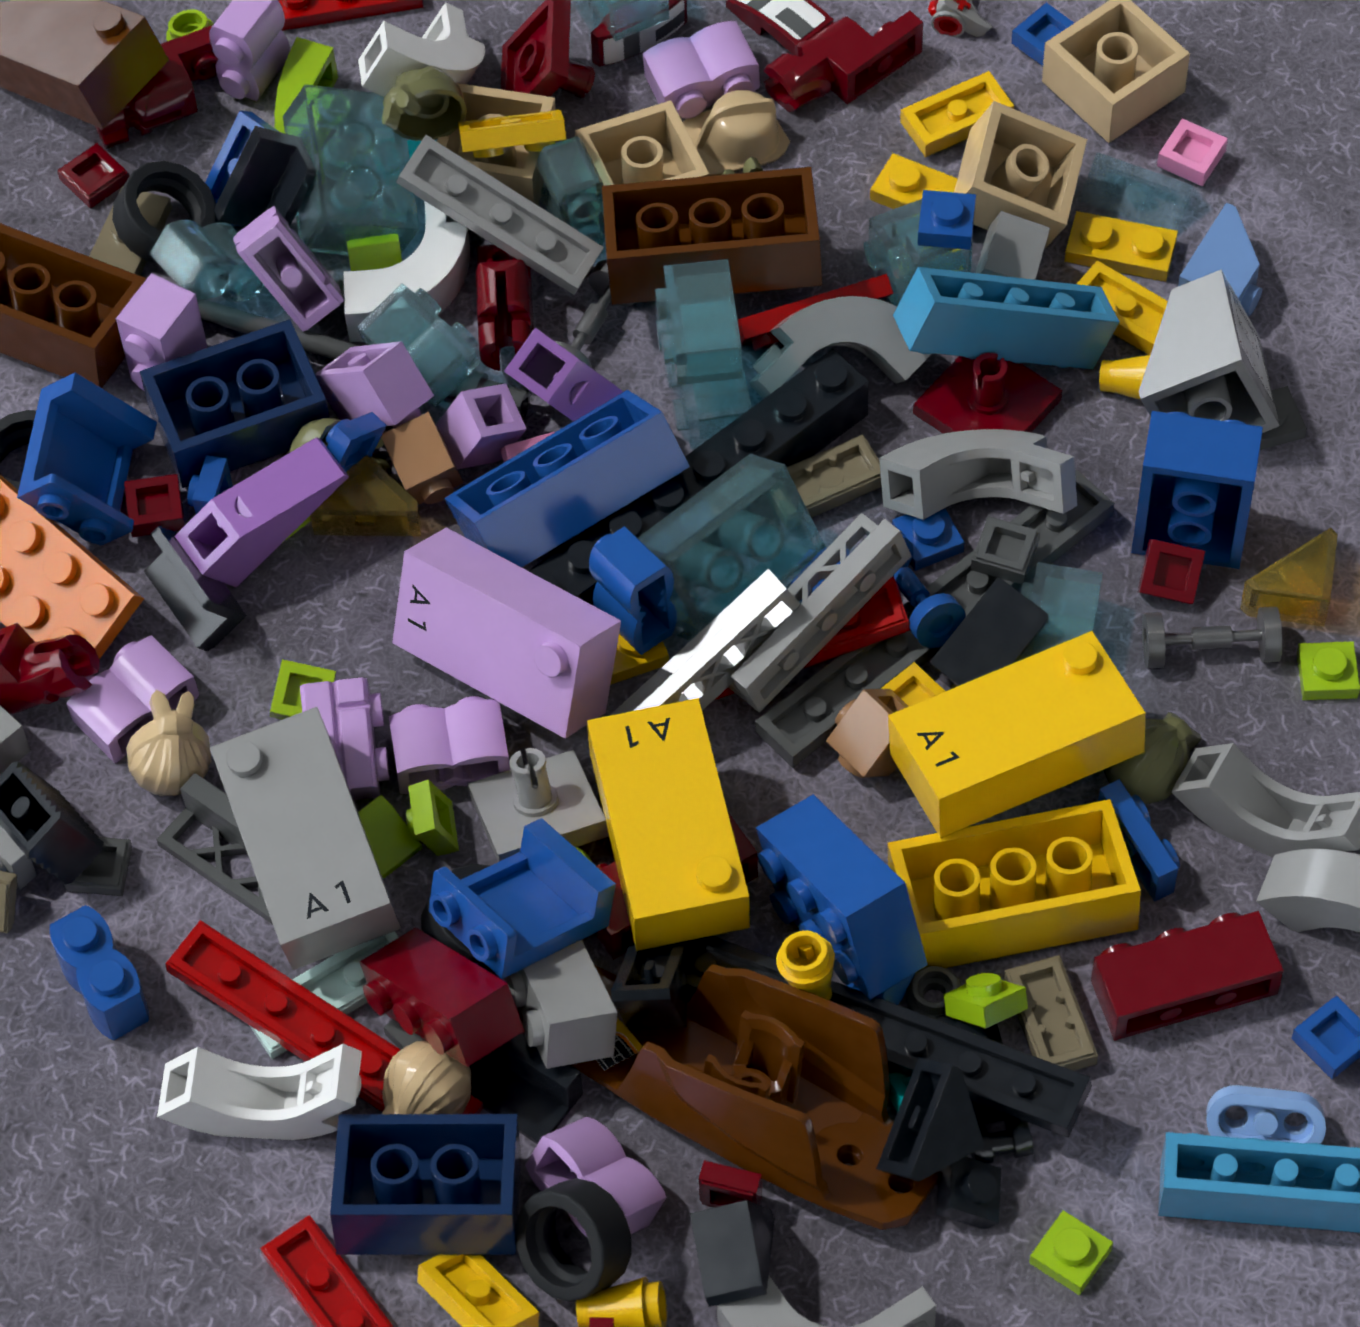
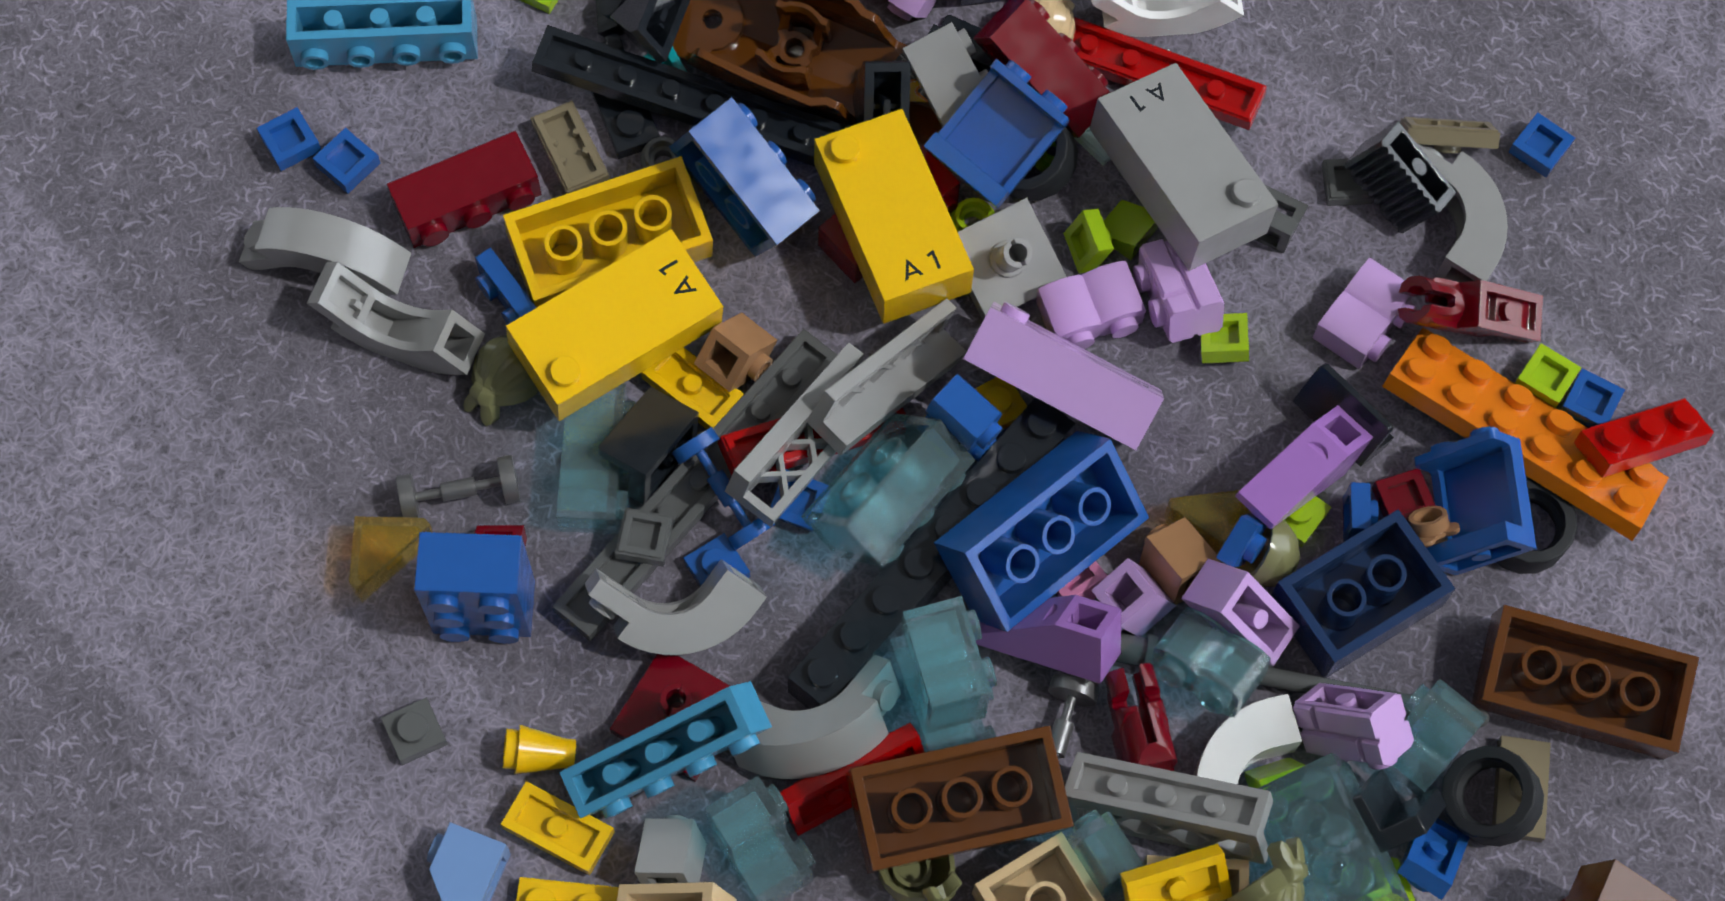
camera: 165 degrees right, 10 degrees up
(93, 175) = (1574, 849): dark red tile -> none
(99, 972) = (1322, 84): blue brick -> none
(140, 470) = (1432, 525): none -> medium nougat plate
(159, 326) = (1450, 642): lavender brick -> none
(168, 747) = (1314, 251): tan piece -> none
(807, 962) = (764, 100): yellow cone -> none
(837, 475) = (811, 605): dark tan plate -> none
(946, 219) = (732, 821): blue plate -> none
(985, 1000) = (621, 140): lime plate -> none
(1208, 358) = (469, 735): slope -> none
(1265, 1115) = (380, 89): light blue plate -> none
(1328, 670) = (357, 481): lime plate -> none

